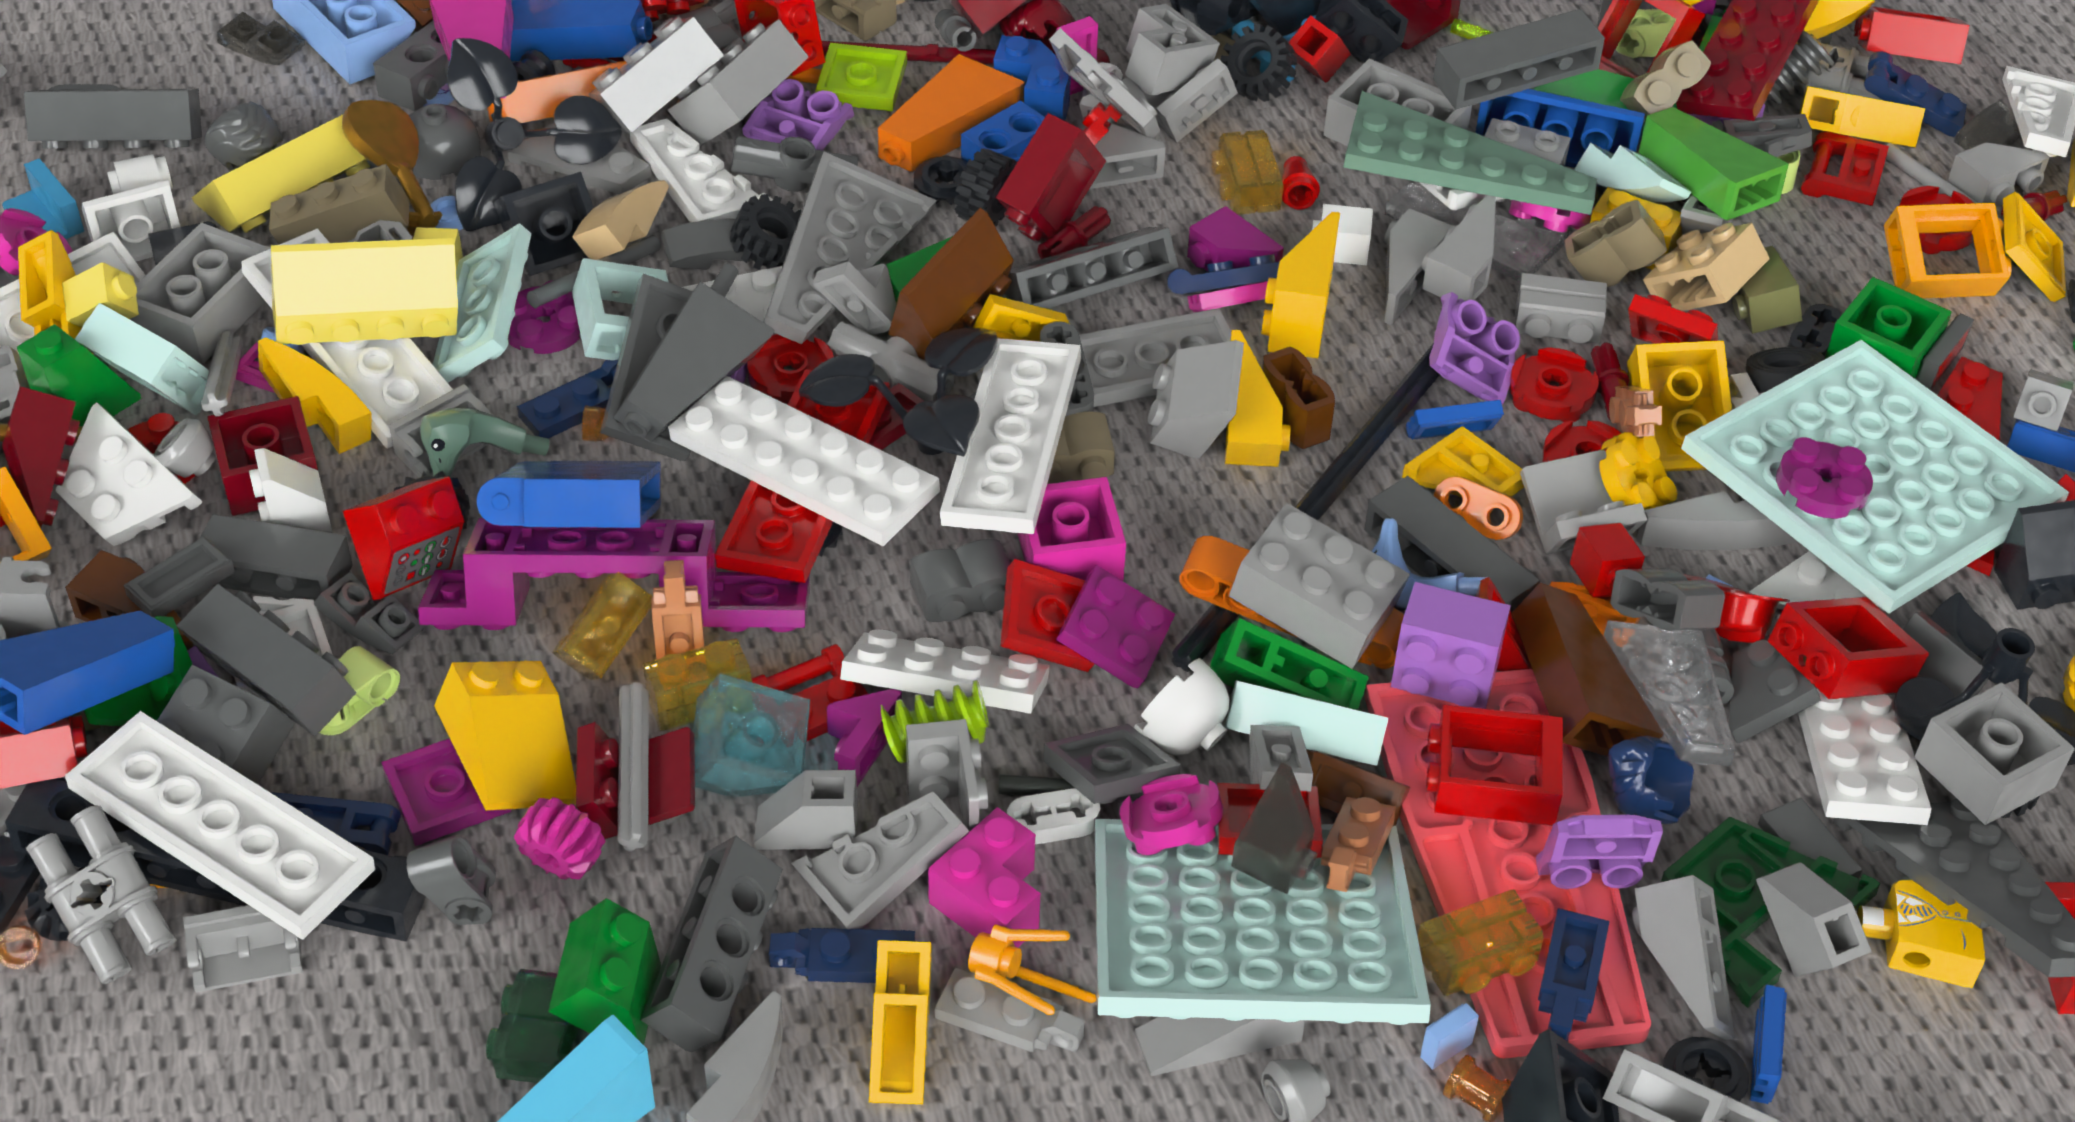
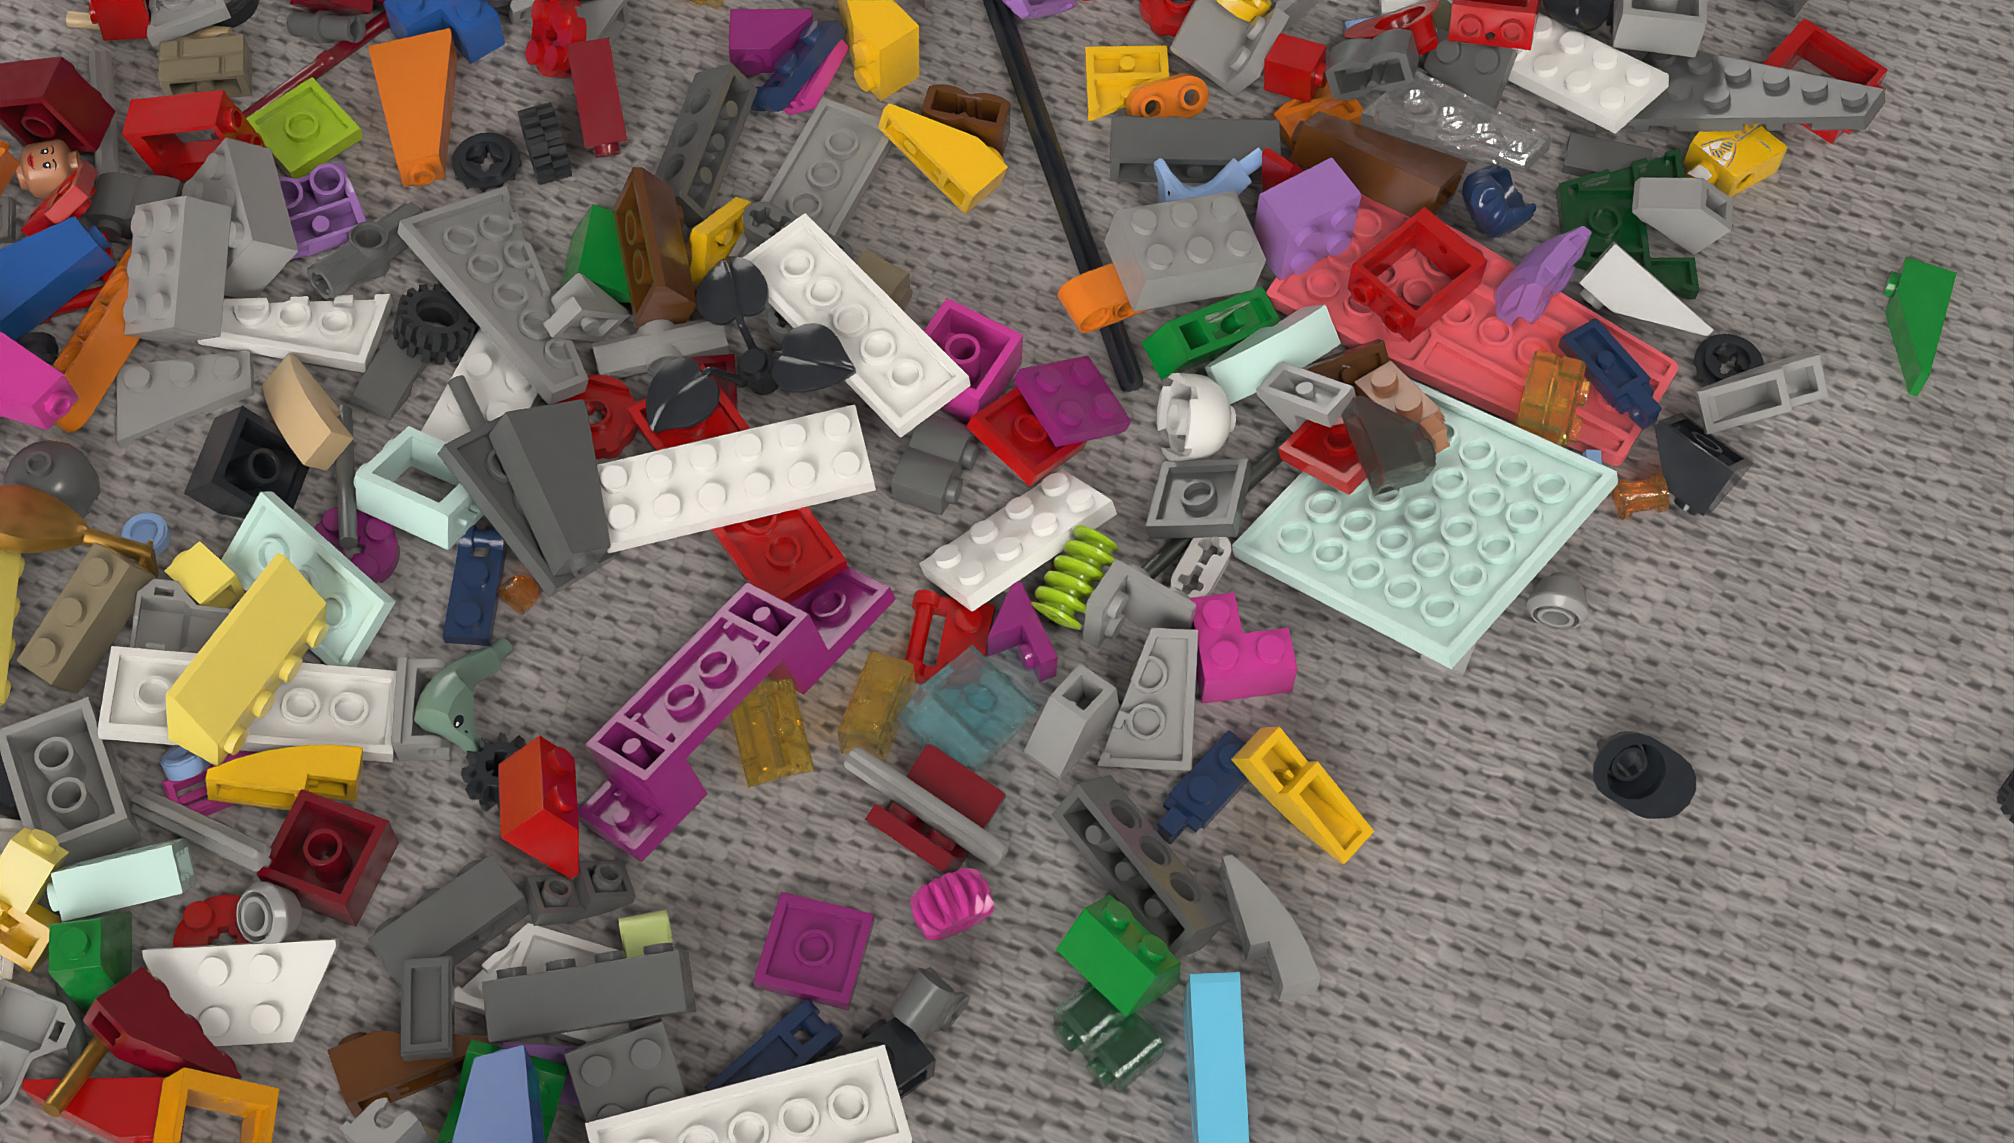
camera: 50 degrees left, 15 degrees up
(290, 492) = (400, 869): white slope -> none
(479, 77) = (69, 400): black plant -> none
(508, 732) = (816, 872): yellow slope -> none
(573, 494) = (629, 658): piece -> none
(676, 613) = (826, 680): nougat hinge -> none
(996, 957) = (1306, 694): light orange plant -> none
(1003, 133) = (496, 90): blue brick -> none
(1003, 1017) = (1346, 722): light grey hinge -> none
(1076, 233) = (643, 126): dark red axle -> none
(1172, 814) = (1304, 513): dark pink plate -> none
(1195, 397) = (916, 179): light grey slope -> none
(1447, 419) = (1073, 46): blue tile -> none
(1768, 1044) = (1739, 311): blue tile -> none

